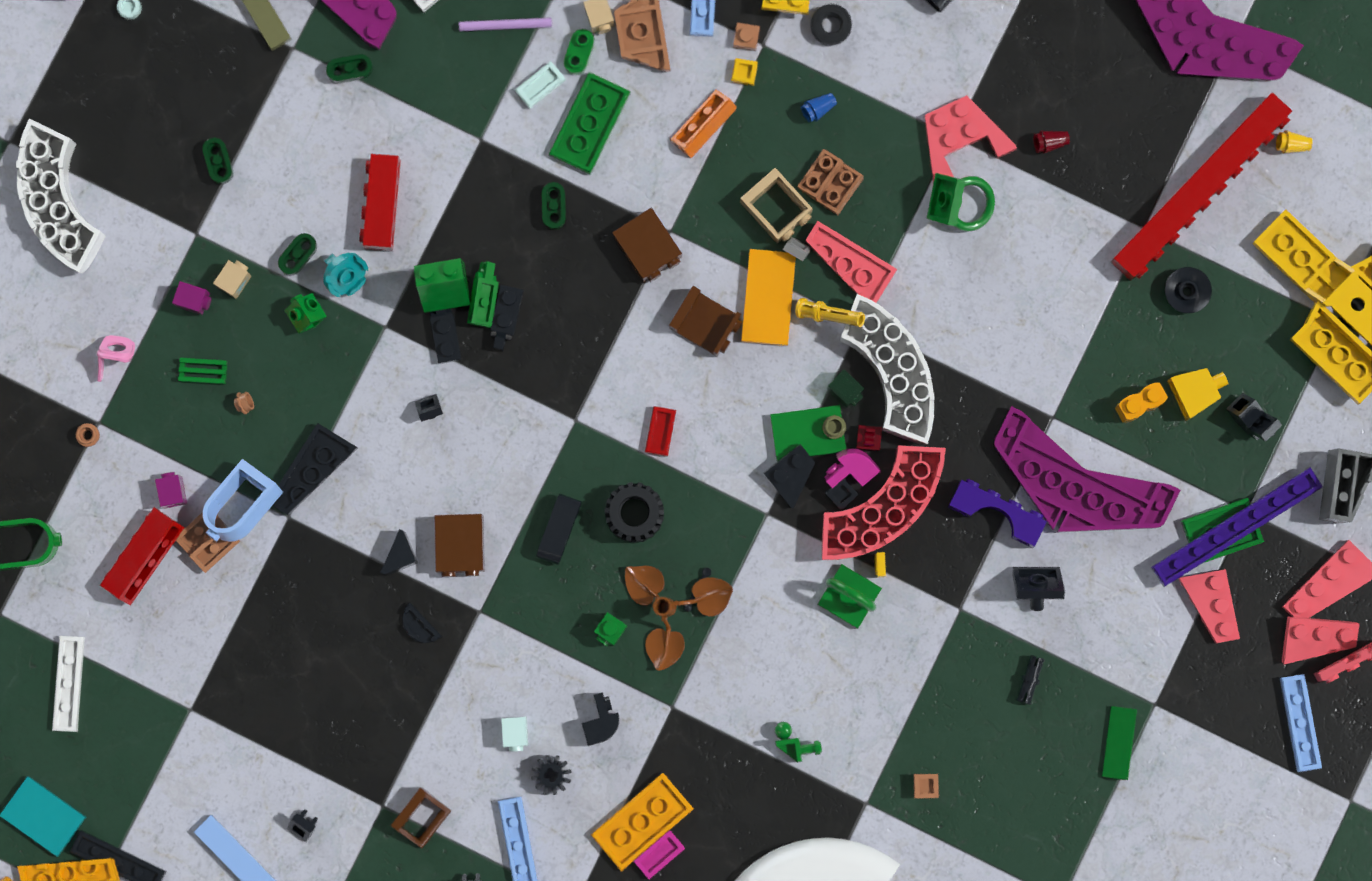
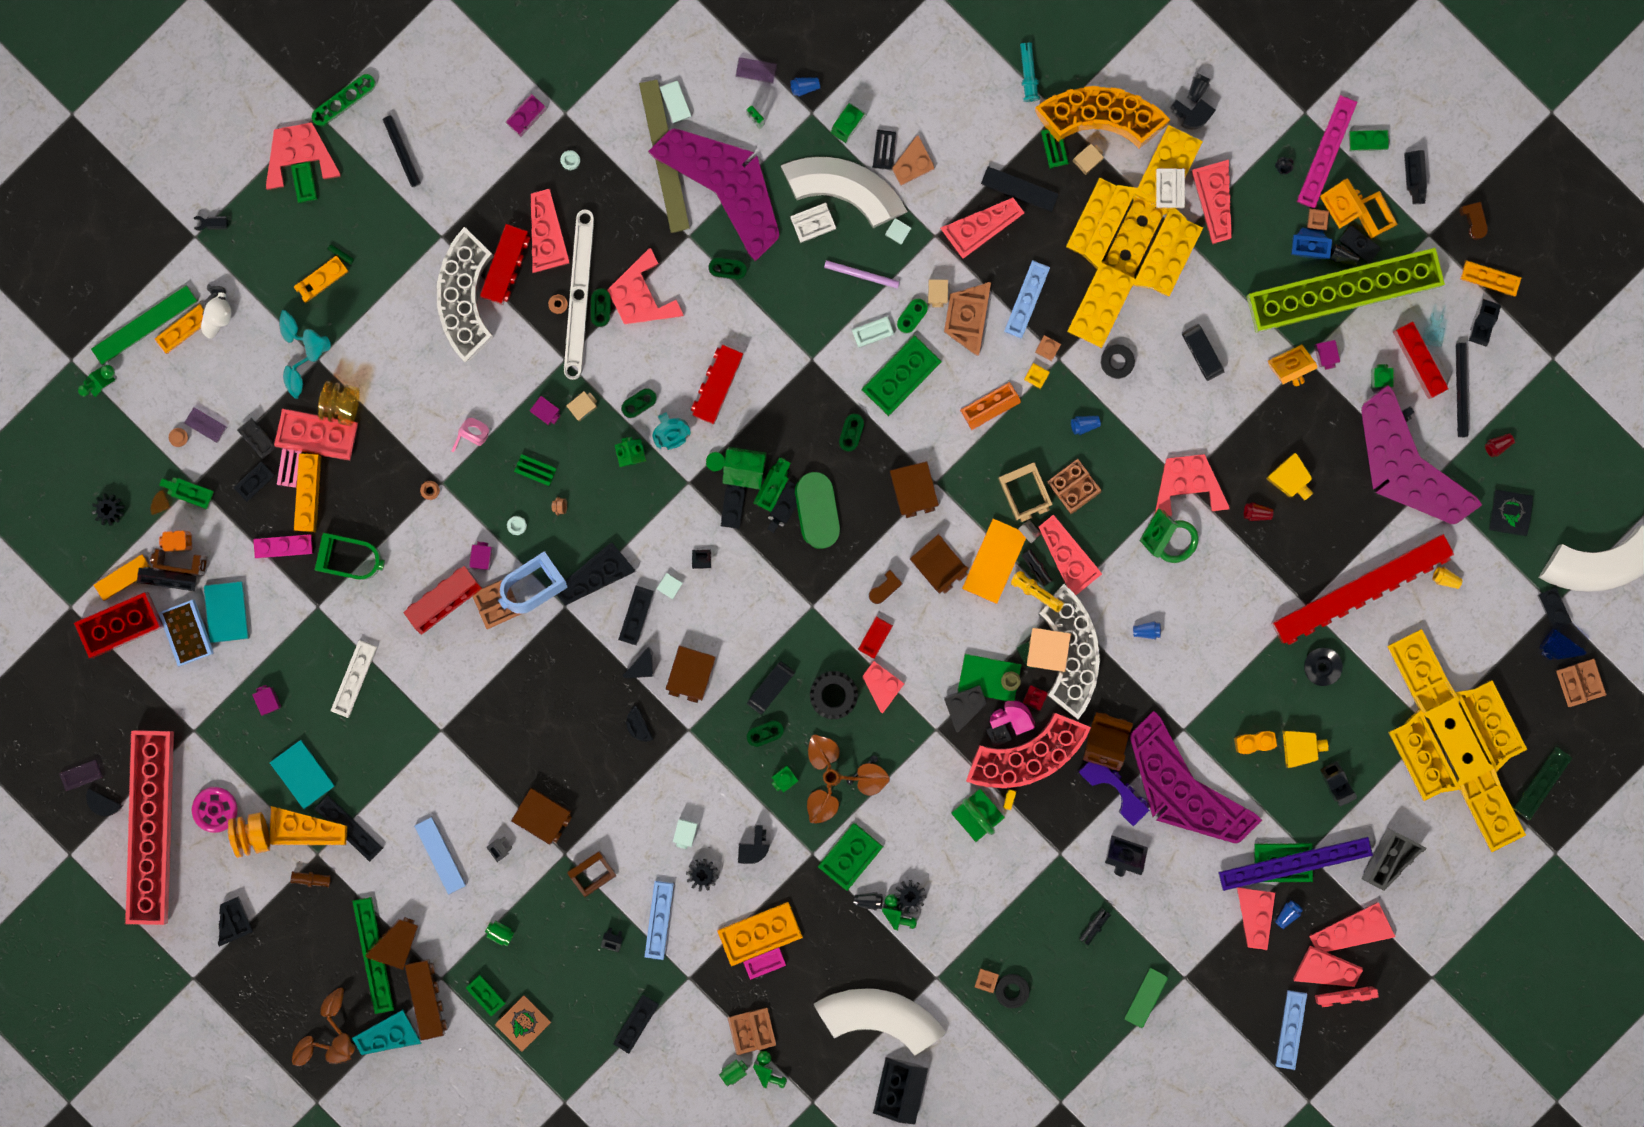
camera: 20 degrees right, 5 degrees up
(91, 148) = (504, 265): none -> red brick
(132, 105) = (547, 238): none -> coral wing
(172, 178) = (562, 308): none -> nougat plate
(184, 139) = (580, 281): none -> white beam
(202, 442) = (516, 525): none -> light aqua tile
(253, 137) = (634, 298): none -> coral wing
(340, 770) = (542, 816): none -> reddish brown brick
(374, 498) = (636, 615): none -> black plate
(402, 452) = (669, 586): none -> light aqua tile
(407, 292) = (715, 461): none -> green tile
(544, 307) = (817, 510): none -> green tile
(570, 585) = (765, 733): none -> dark green plate
(649, 378) = (879, 594): none -> reddish brown leg
(687, 483) = (882, 685): none -> coral wing
(717, 694) = (850, 856): none -> green tile
(757, 739) = (869, 900): none -> black cone
(809, 721) = (914, 901): none -> black gear
(819, 288) = (1036, 568): none -> black pin
(865, 374) = (1048, 649): none -> light nougat tile
(970, 458) = (1107, 741): none -> reddish brown panel
(972, 316) = (1148, 630): none -> blue cone
(974, 791) = (1012, 979): none -> black tyre
(1076, 88) = (1292, 478): none -> yellow torso
(1250, 589) = (1288, 914): none -> blue cone
(1339, 45) = (1510, 513): none -> black slope

